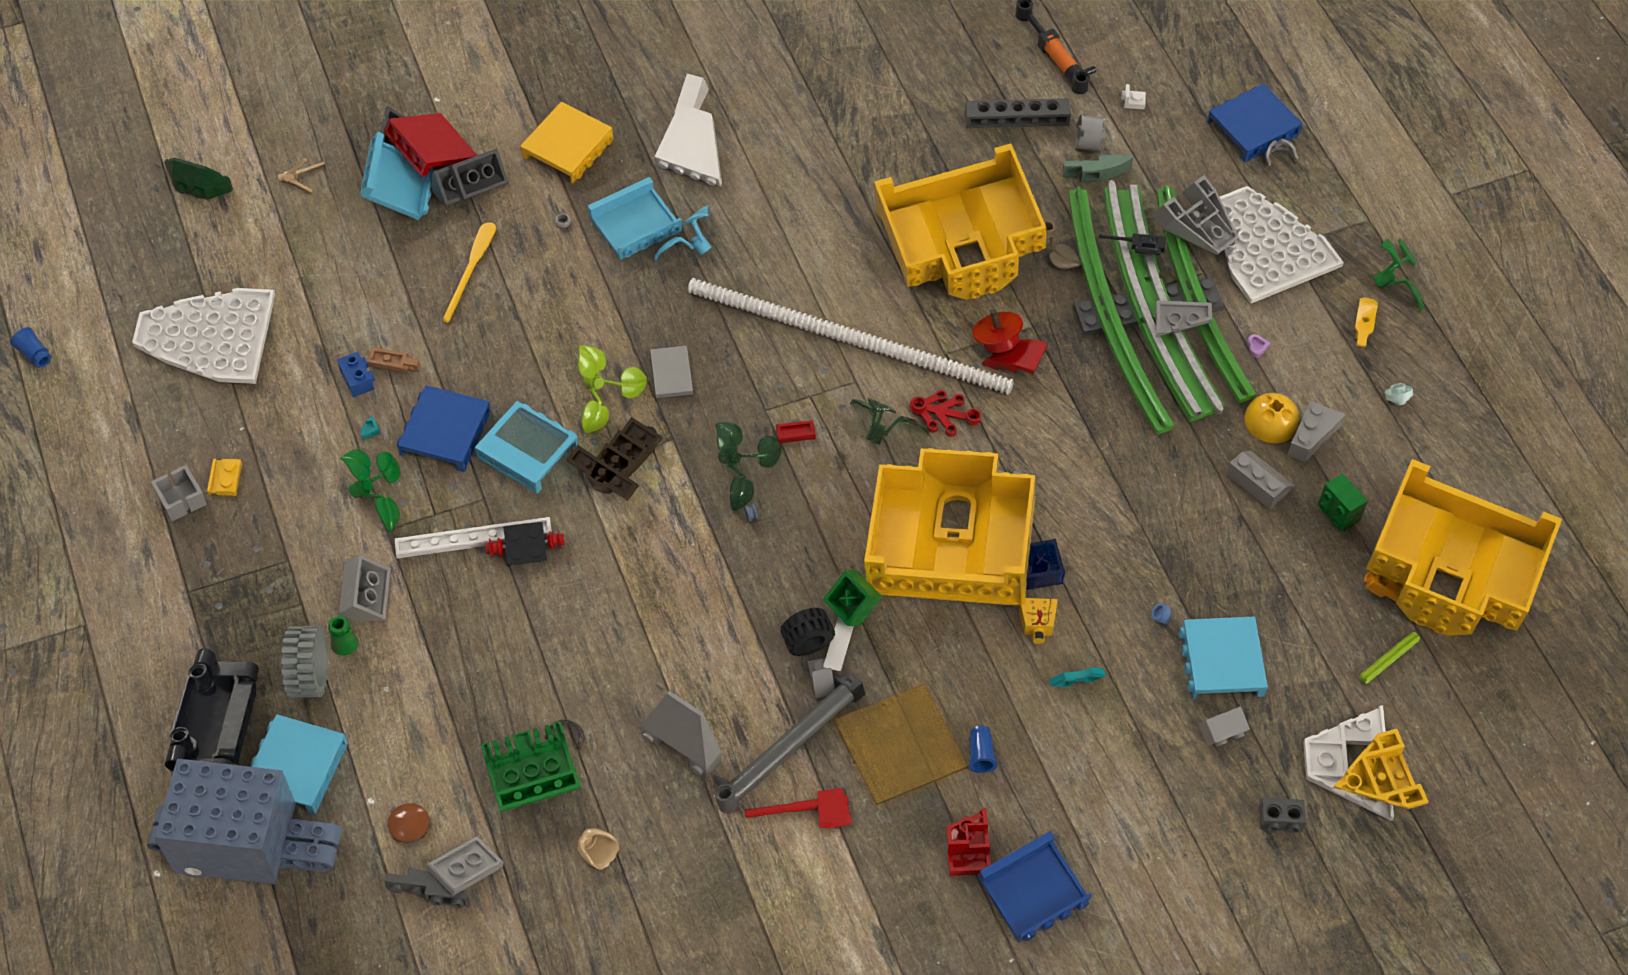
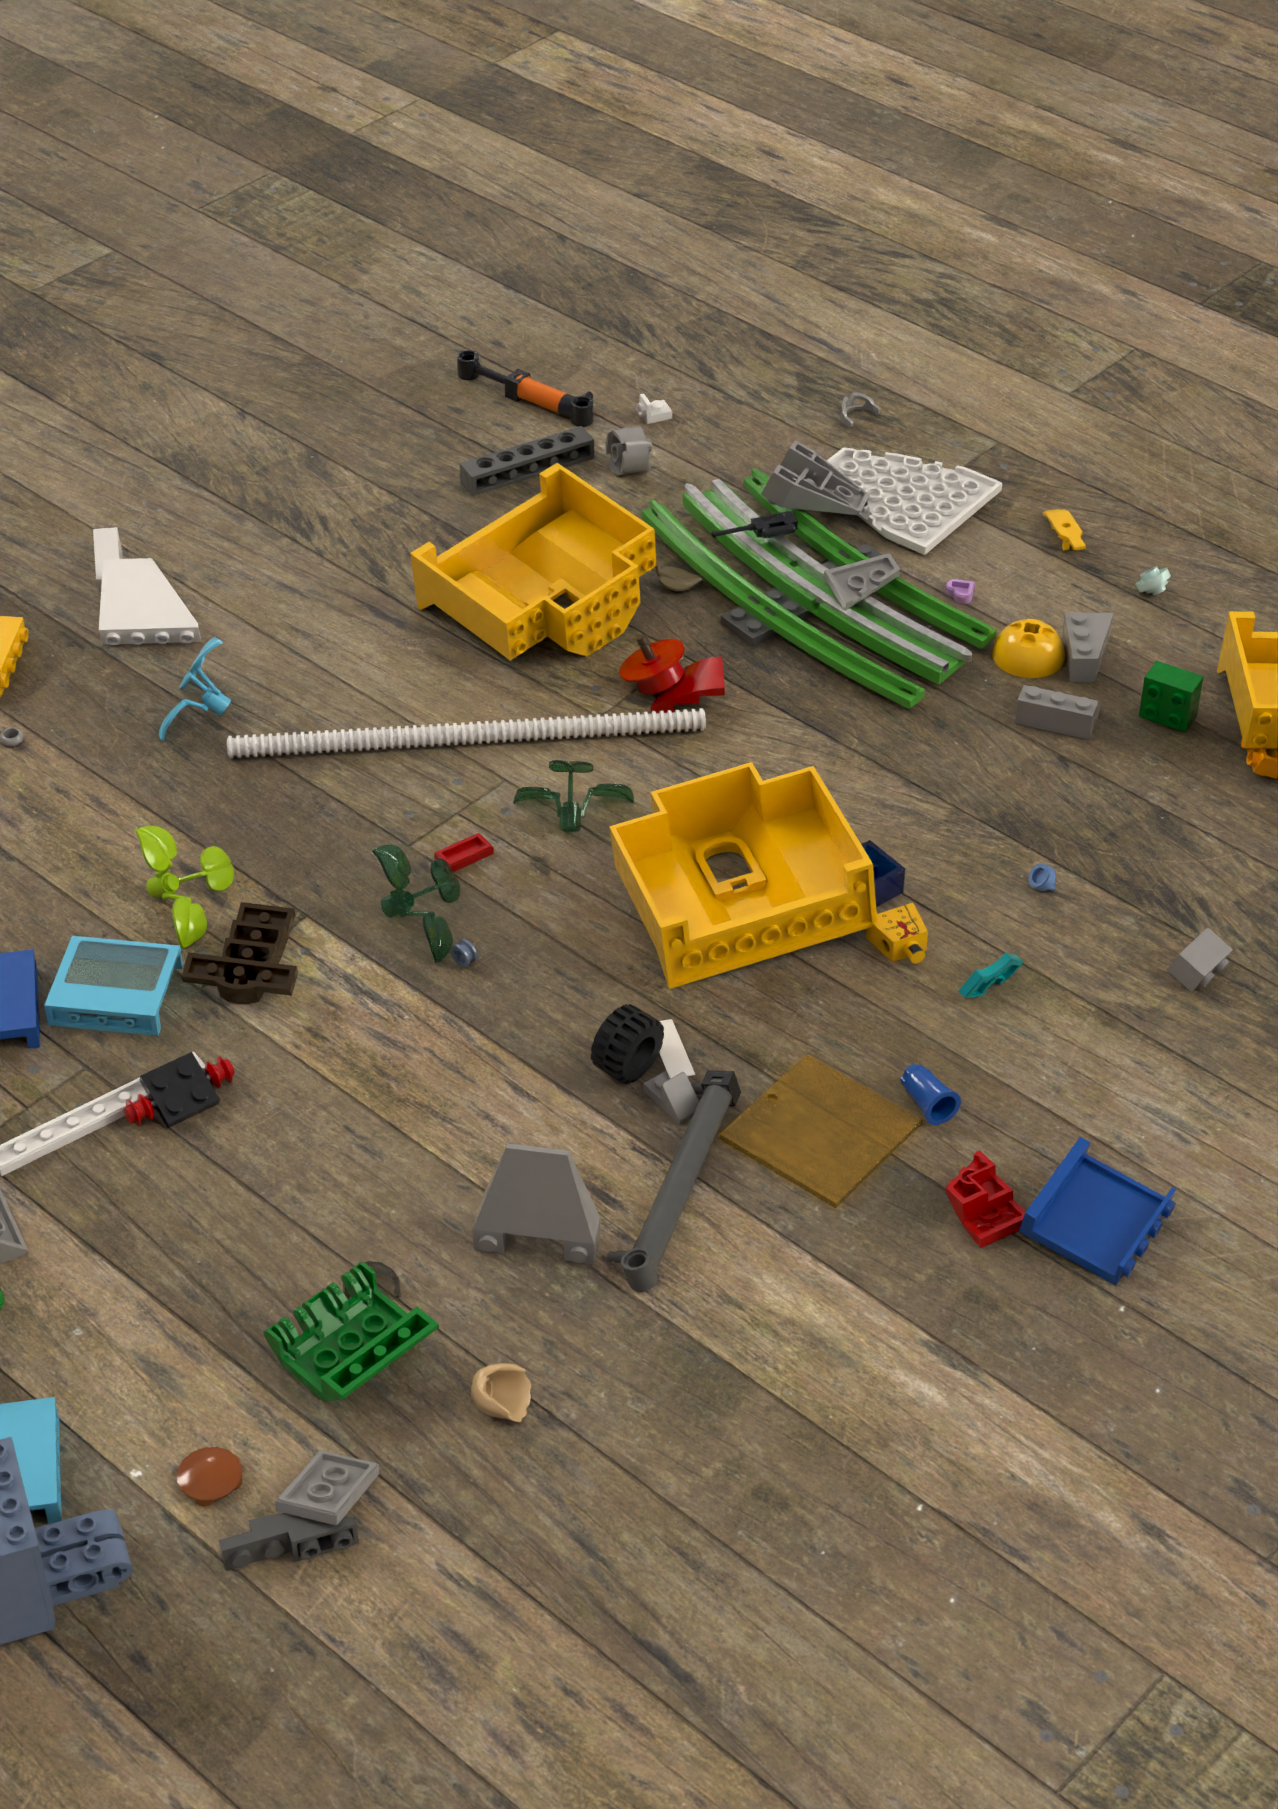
camera: 25 degrees left, 15 degrees down
(633, 218) = (107, 705): medium azure panel -> none
(671, 372) = (260, 845): light grey tile -> none
(831, 807) = (778, 1227): red piece -> none
(852, 598) = (660, 988): green brick -> none
(942, 410) = (636, 770): red plant -> none
(1097, 170) = (660, 484): sand green slope -> none
(1223, 656) = (1145, 892): medium azure panel -> none
(1255, 121) = (810, 387): blue panel -> none
(1386, 276) = (1061, 447): green plant -> none

